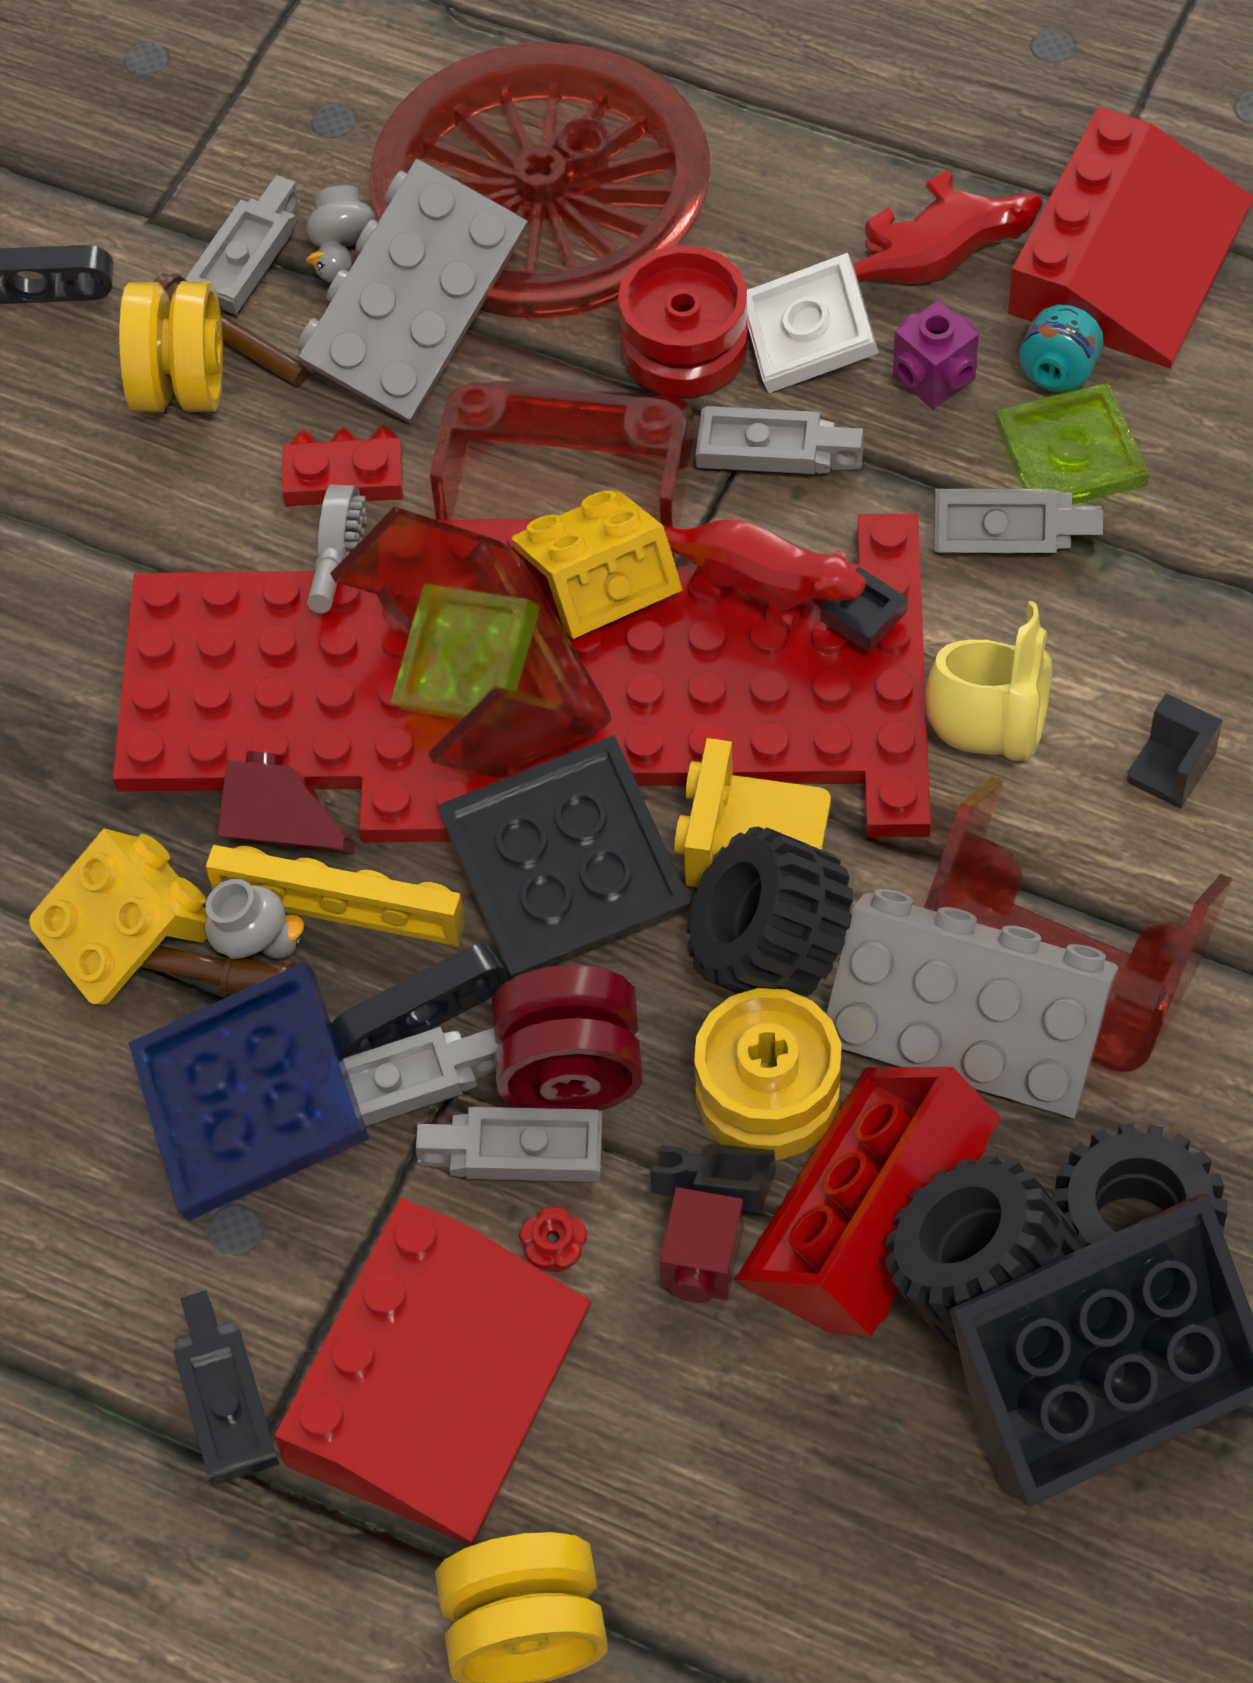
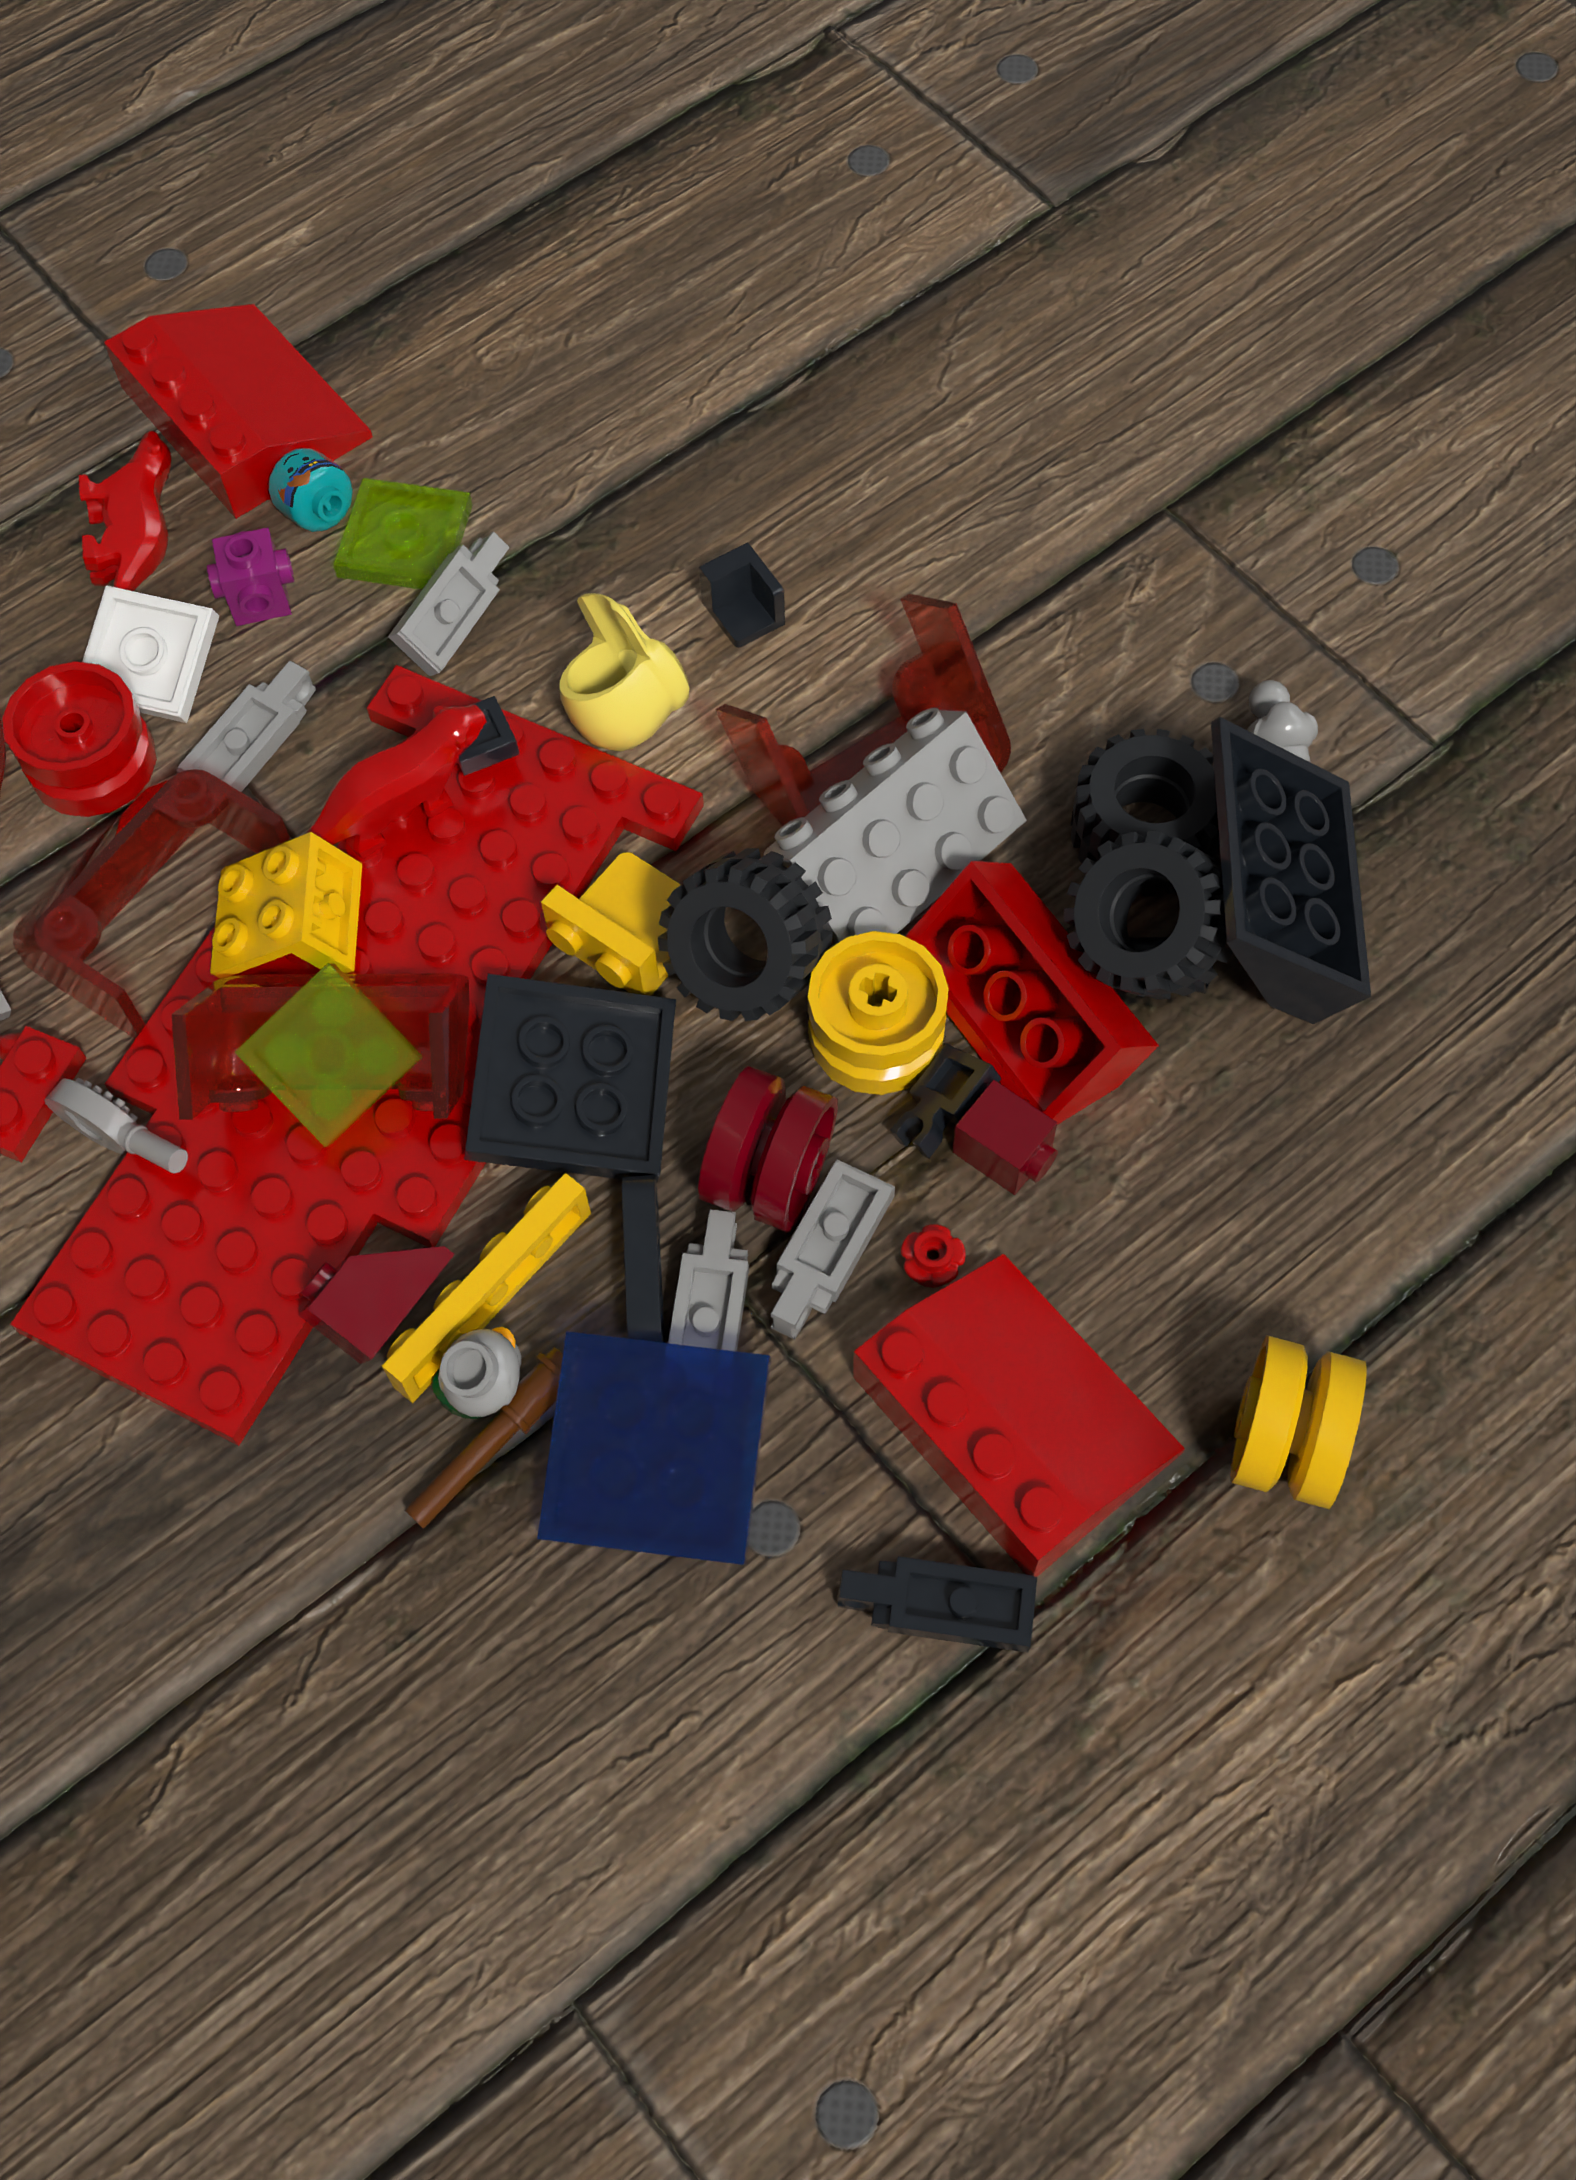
camera: 65 degrees left, 5 degrees up
(116, 912) = (389, 1496): yellow bracket -> none

